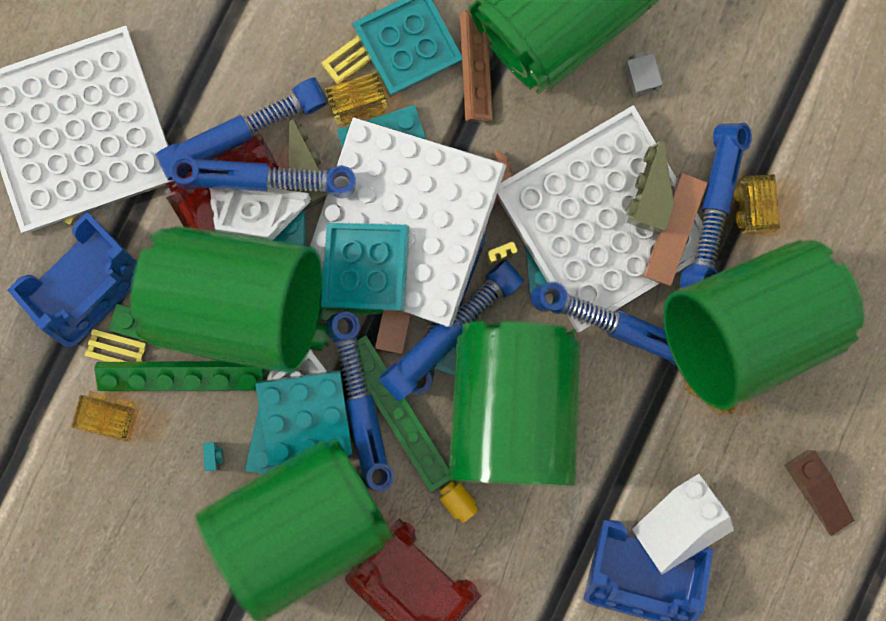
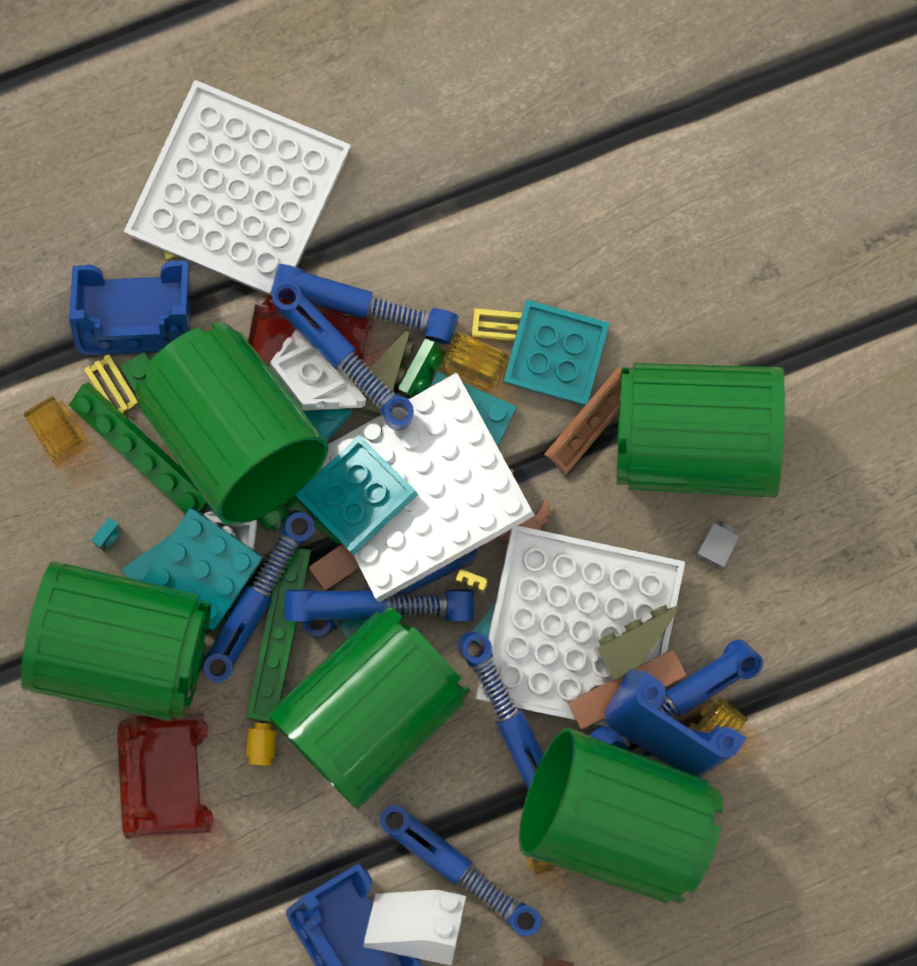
camera: 50 degrees right, 5 degrees down
(324, 129) = (422, 369): none -> green plate
(673, 460) = (457, 868): none -> blue piece
(706, 235) = (637, 717): none -> blue windscreen

